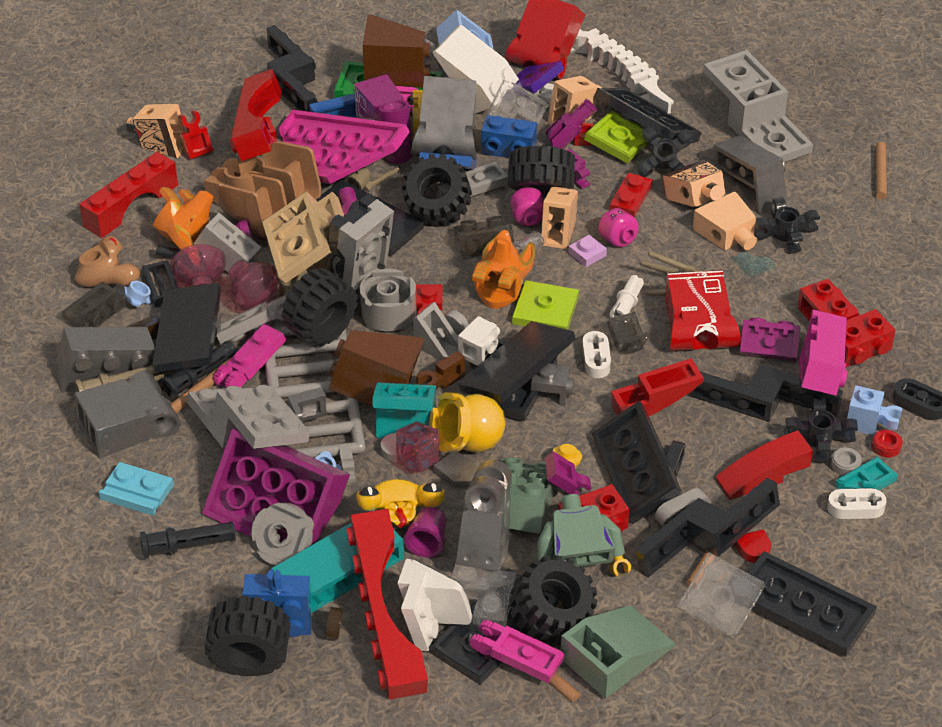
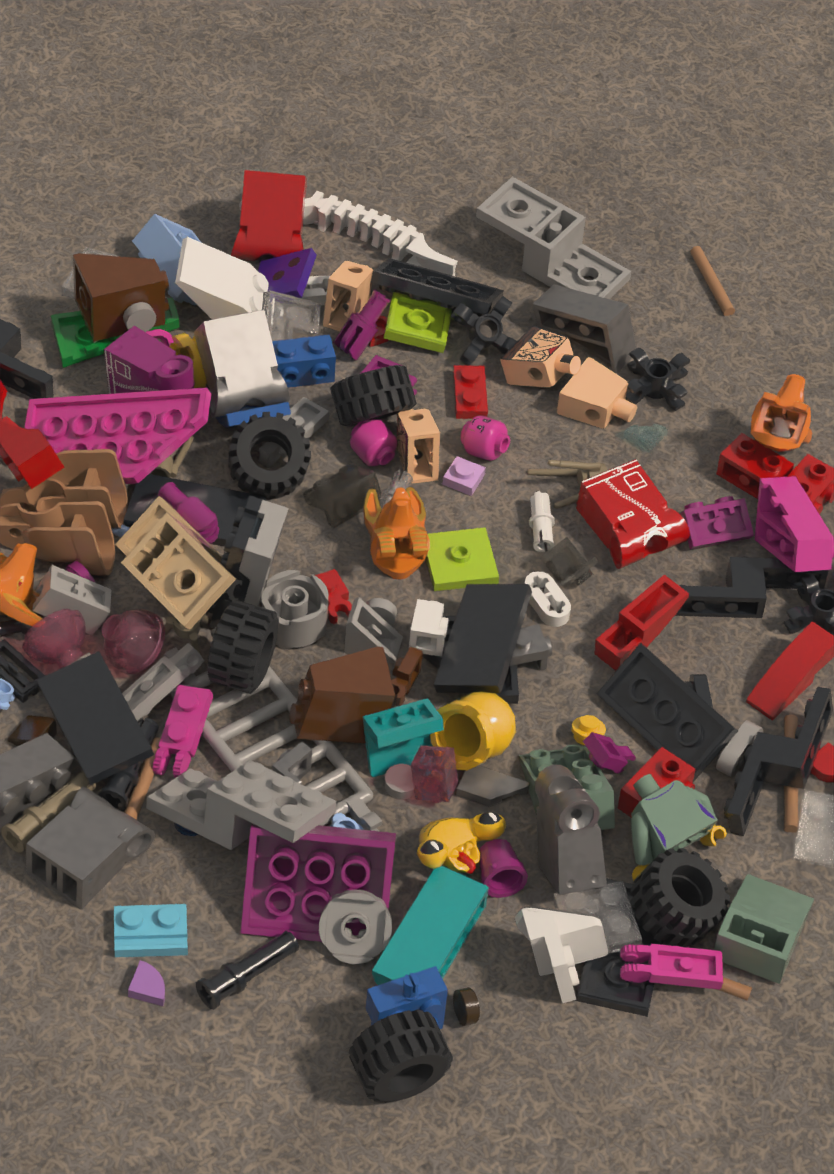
camera: 30 degrees left, 5 degrees up
(107, 525) = (147, 985): none -> medium lavender tile
(338, 106) = (83, 381): blue tile -> none
(400, 73) = (140, 315): none -> light grey tile
(400, 660) = (562, 1022): red arch -> none
(862, 275) = (783, 419): none -> orange piece

